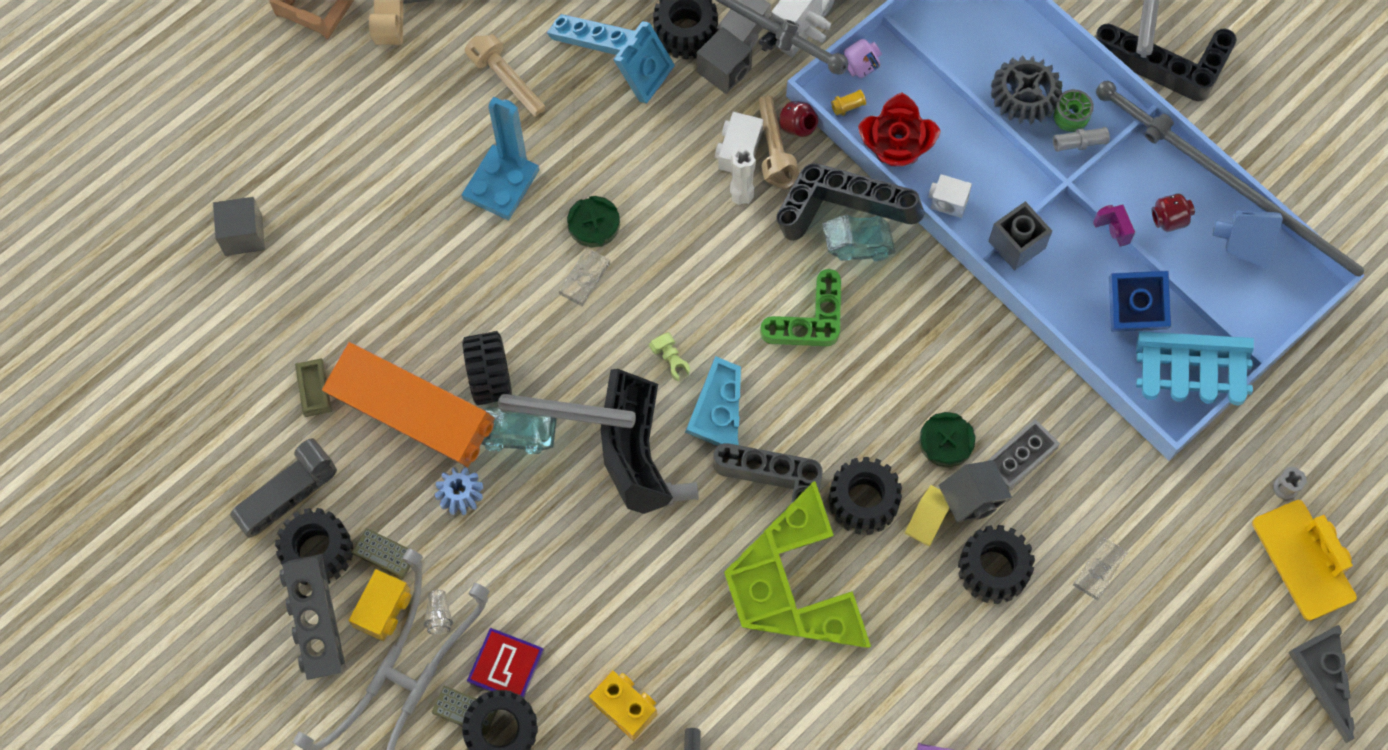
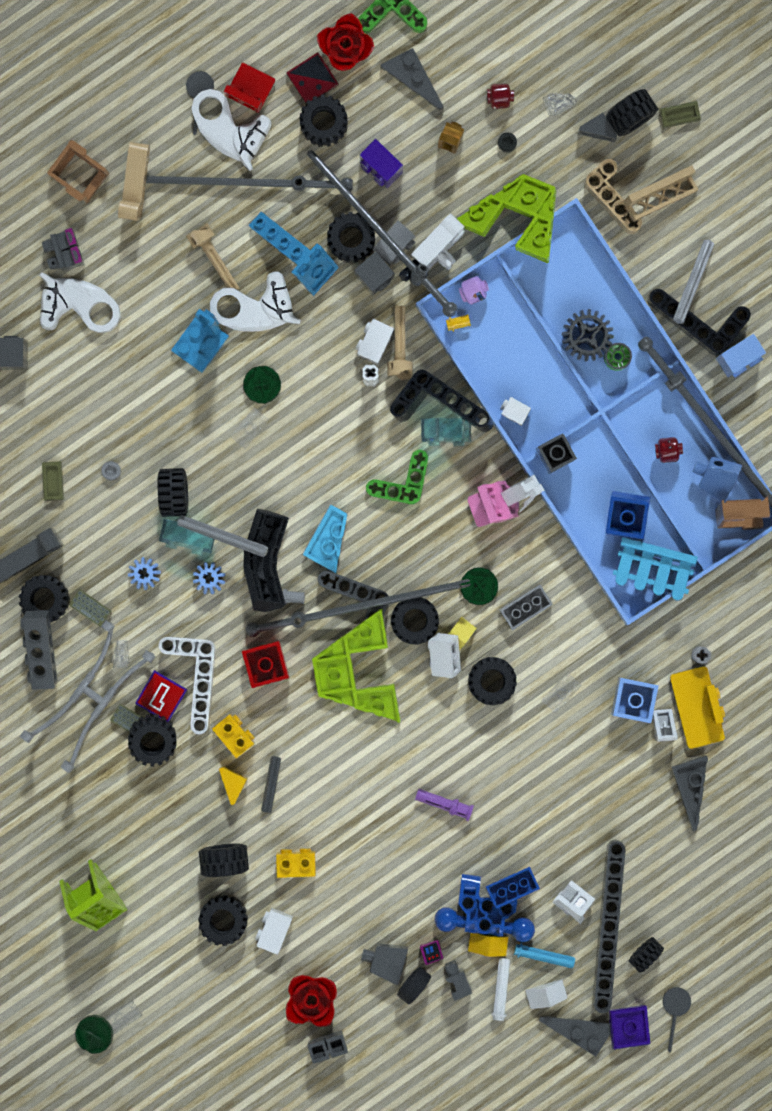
camera: 10 degrees right, 20 degrees up
(305, 91) = (66, 250): none -> dark grey hips
(324, 147) = (69, 293): none -> white animal
(380, 605) = (83, 646): yellow brick -> none
(397, 357) = (111, 471): none -> light grey tile
(409, 404) = (116, 509): orange brick -> none
(560, 625) = (199, 676): none -> white beam
(562, 490) = (204, 582): none -> light blue gear
(585, 133) = (254, 315): none -> white animal
(630, 546) = (253, 628): none -> dark grey bar
(656, 590) = (265, 664): none -> red brick
(664, 344) = (300, 495): yellowish green piece -> none
(798, 119) = (419, 330): dark red head -> none
(899, 117) = (491, 343): red brick -> none
(918, 535) = (444, 655): none -> white brick
(943, 323) = (489, 506): none -> bright pink piece
(975, 491) = (488, 631): dark grey head -> none
(982, 292) = (521, 490): none -> white piece
(1081, 139) = (618, 380): light grey pin -> none
(1119, 223) = (628, 455): magenta bracket -> none
(1211, 559) = (634, 700): none -> light blue brick
(1237, 87) = (739, 356): none -> light blue brick
(1264, 593) = (664, 725): none -> white slope
(1297, 277) = (742, 513): none -> medium nougat piece

